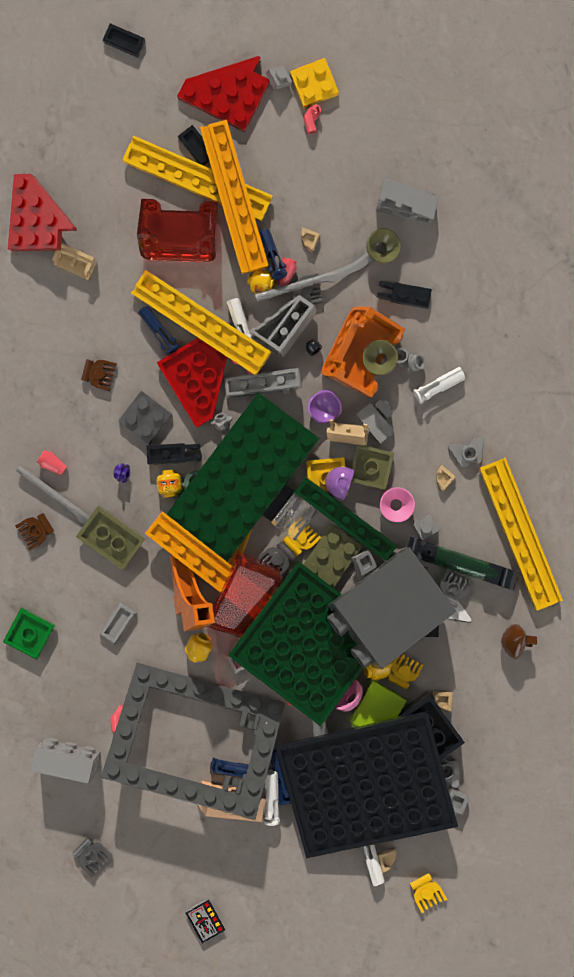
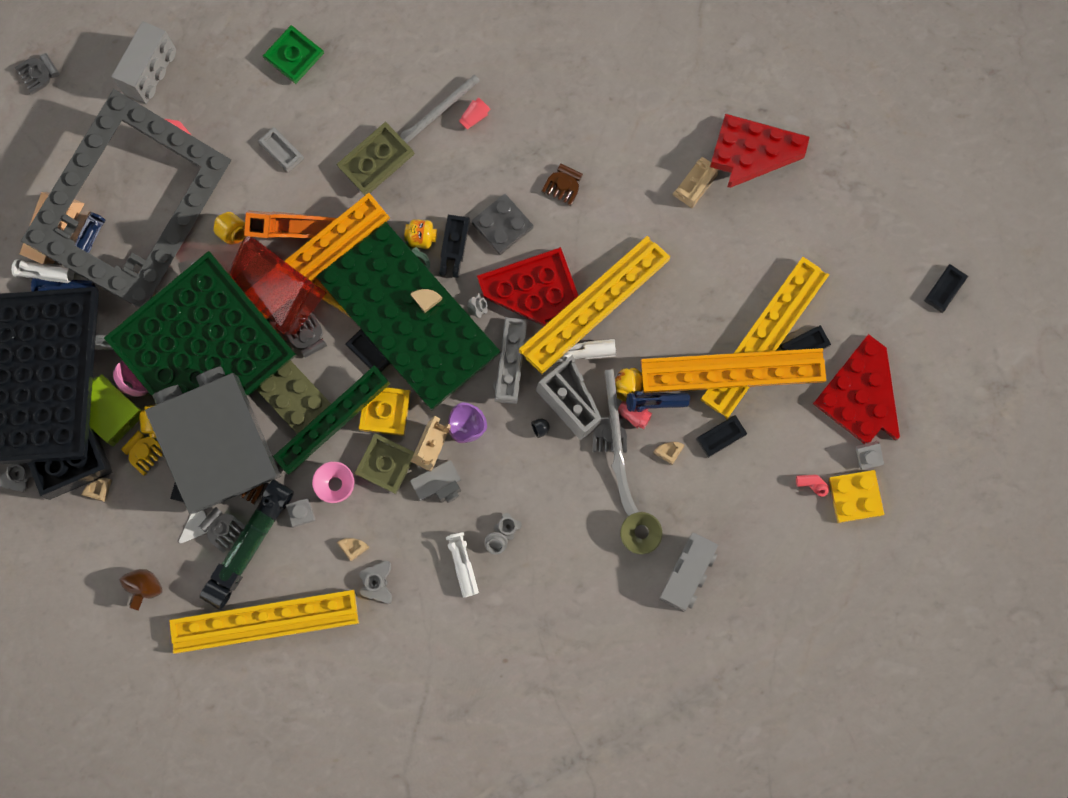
camera: 110 degrees right, 10 degrees down
(37, 529) = (406, 85): reddish brown piece -> none
(122, 472) = (445, 185): dark purple plate -> none
(156, 327) = (601, 256): dark blue piece -> none
(177, 234) = (707, 300): clear red windscreen -> none
(228, 462) = (426, 298): none -> tan tile
(288, 199) = (721, 436): none -> black tile
(294, 516) = (347, 361): clear panel -> none
(301, 541) = (323, 364): yellow piece -> none
(338, 482) = (376, 419): medium lavender helmet -> none
(345, 358) = (522, 480): orange windscreen -> none
(364, 562) = (277, 431): light grey plate -> none
(376, 348) = (512, 489): olive piece -> none
(406, 294) = (579, 550): black hinge -> none

